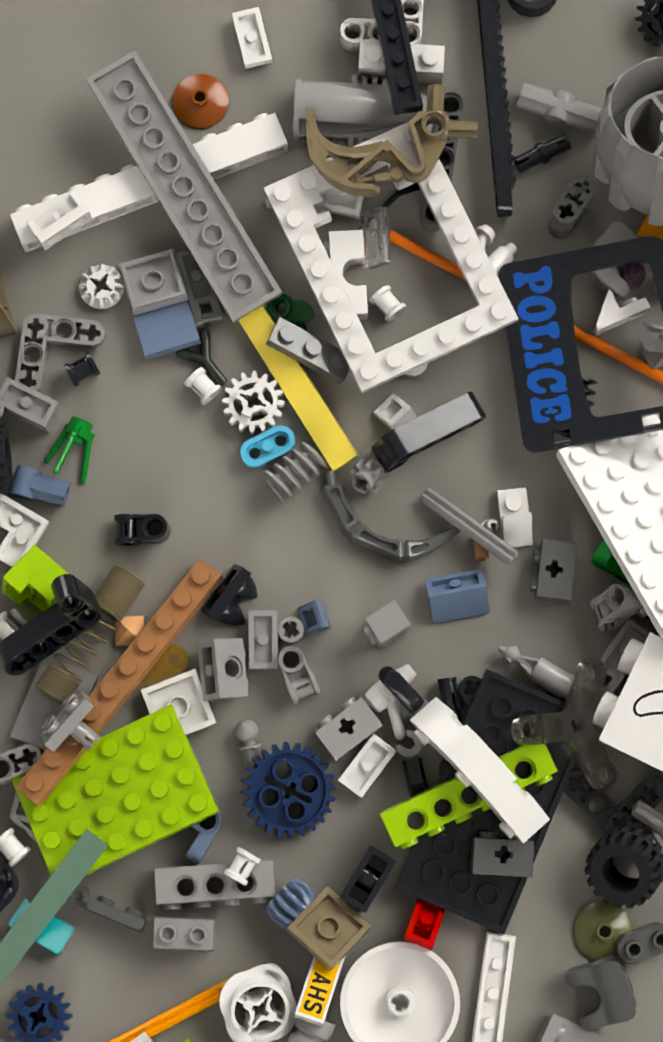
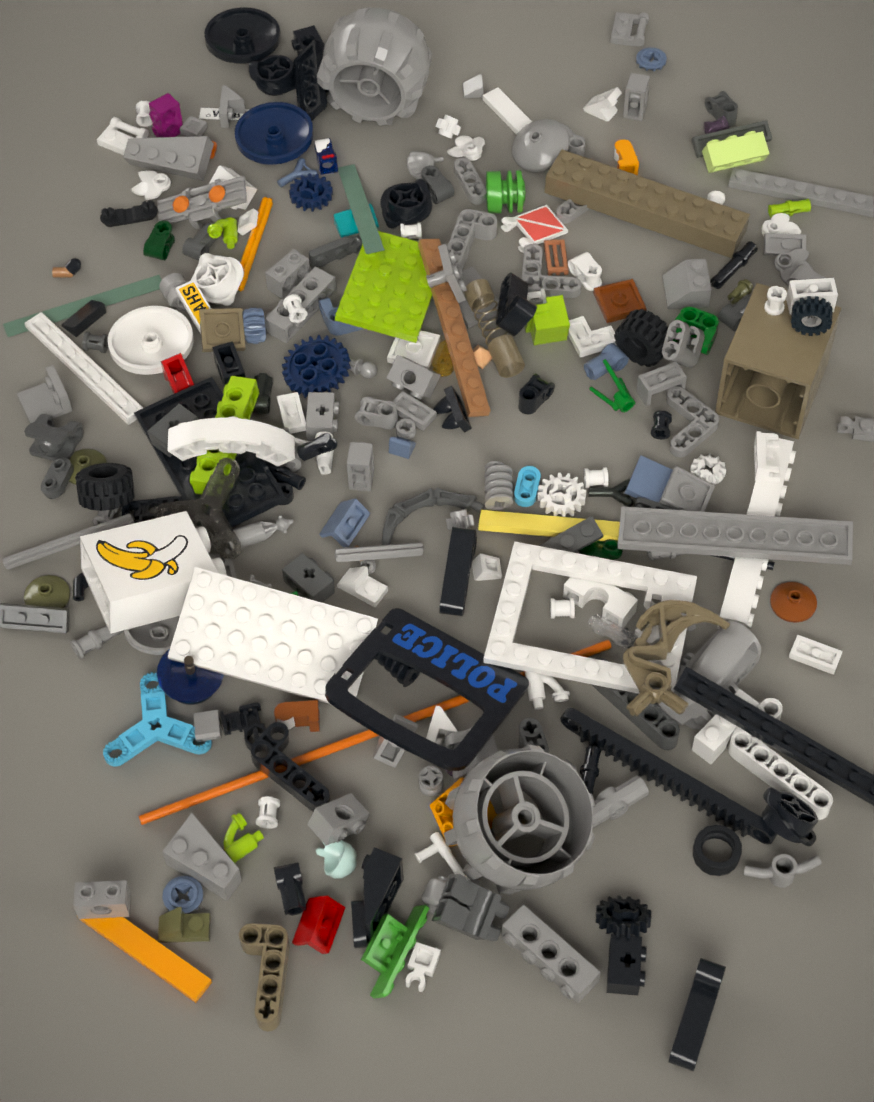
camera: 130 degrees right, 25 degrees down
(367, 821) = (264, 400): none -> pearl dark grey piece

